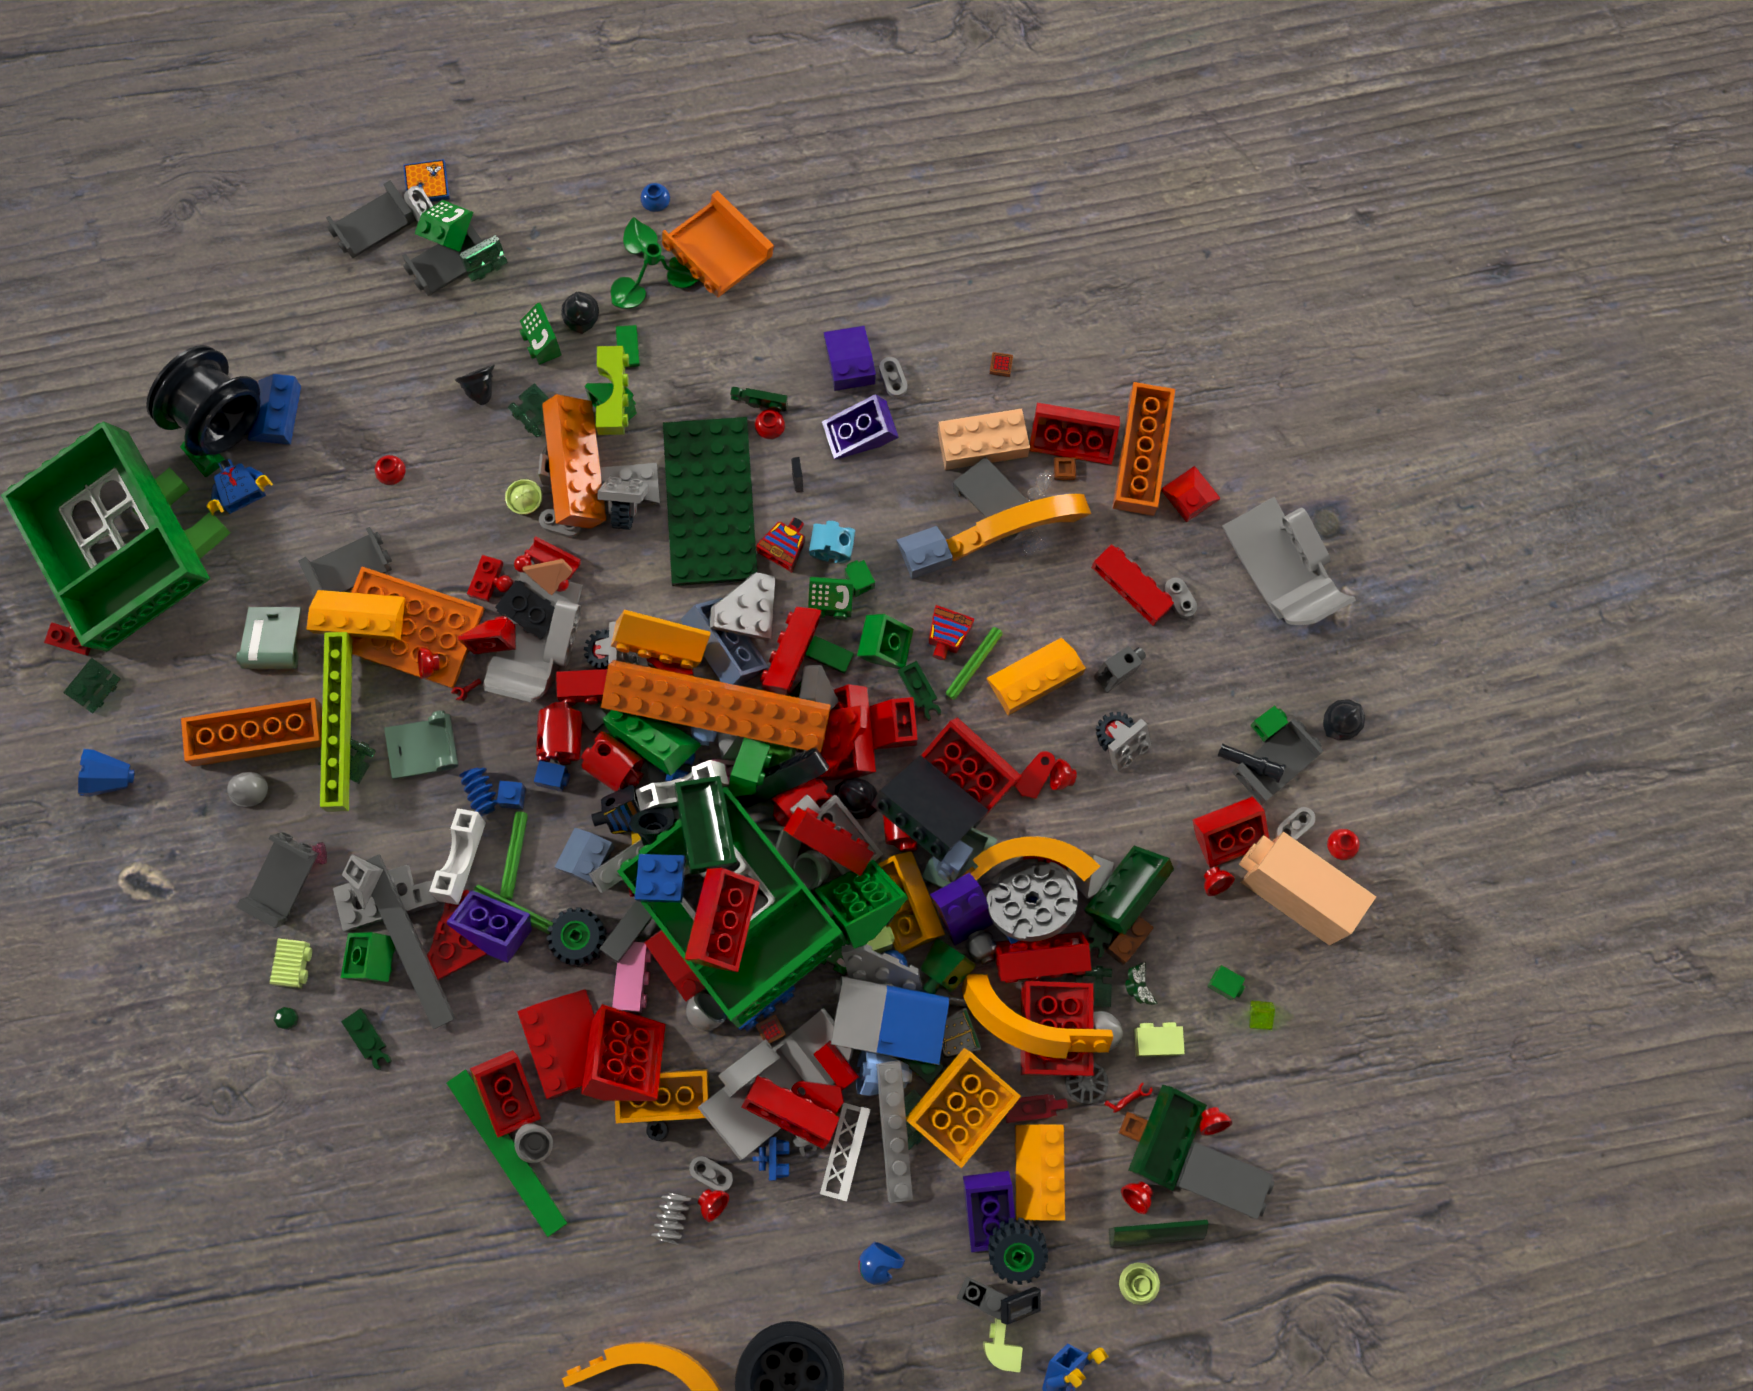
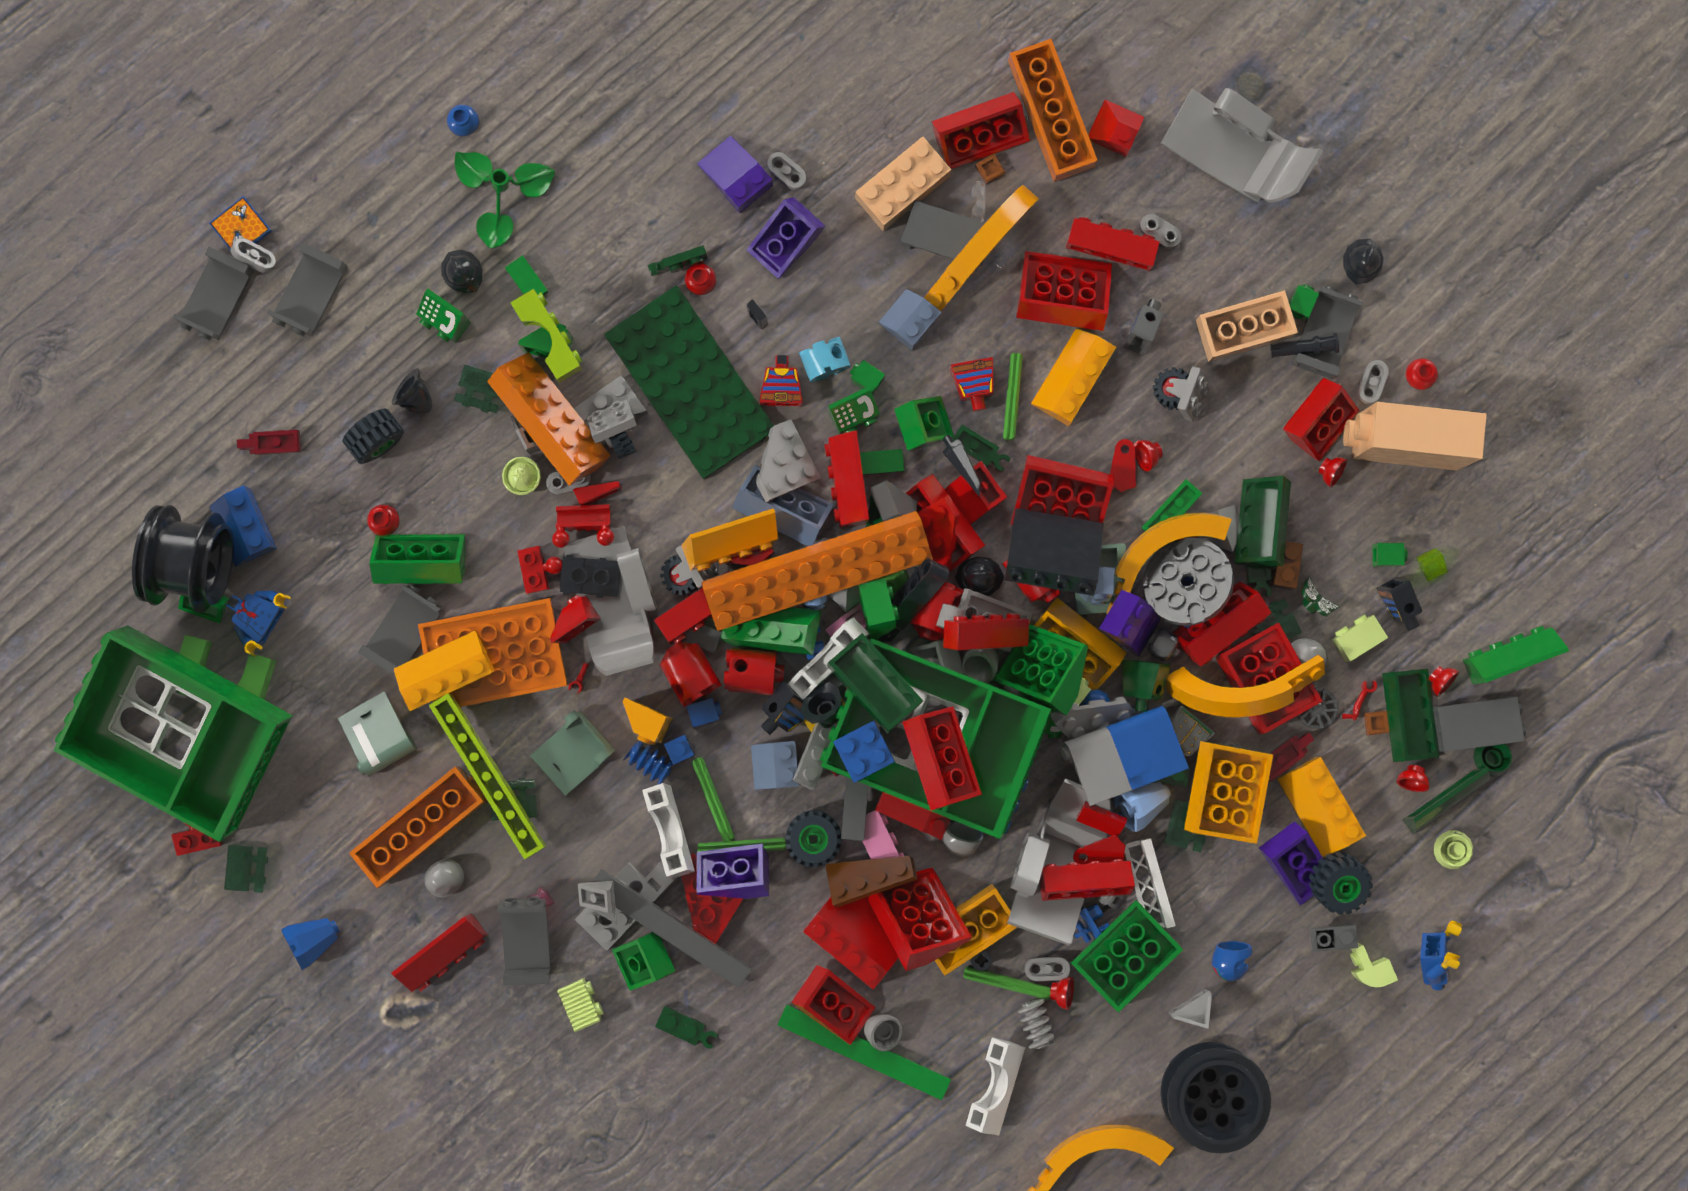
camera: 30 degrees left, 10 degrees up
(202, 848) = (441, 952): none -> red slope
(286, 1018) = (605, 1051): dark green tile -> none
(340, 358) = (271, 442): none -> dark red hinge
(396, 515) = (418, 559): none -> green slope
(422, 395) = (373, 436): none -> black wheel
(427, 662) = (533, 677): red piece -> none
(445, 224) = (288, 261): green slope -> none
(481, 254) = (344, 273): clear green plate -> none
(494, 751) = (647, 722): none -> light orange slope
(549, 574) = (593, 536): nougat slope -> none
(574, 544) = (590, 494): none -> red slope
(582, 1272) = (989, 1112): none -> white arch
(601, 996) = (865, 878): none -> reddish brown wing
(668, 1165) = (1007, 982): none -> bright green axle
(718, 245) = (551, 135): orange panel -> none
(770, 1029) = (1025, 819): tile -> none
(786, 1202) = (1127, 956): none -> green slope
(819, 1290) = (1194, 1010): none -> light grey slope
(894, 1131) = (1182, 845): light grey plate -> none
(895, 685) = (958, 457): none -> black bar
(1001, 364) = (876, 101): tile -> none
(1020, 1305) = (1368, 925): black tile -> none
(1066, 831) = (1175, 504): none -> green plate
(1068, 600) = (1064, 291): none -> red slope
(1209, 715) = (1246, 326): none -> light nougat brick
(1214, 1020) = (1401, 601): none -> black torso
(1222, 1221) = (1495, 757): none -> dark green hat
(1290, 1136) = (1514, 655): none -> green slope

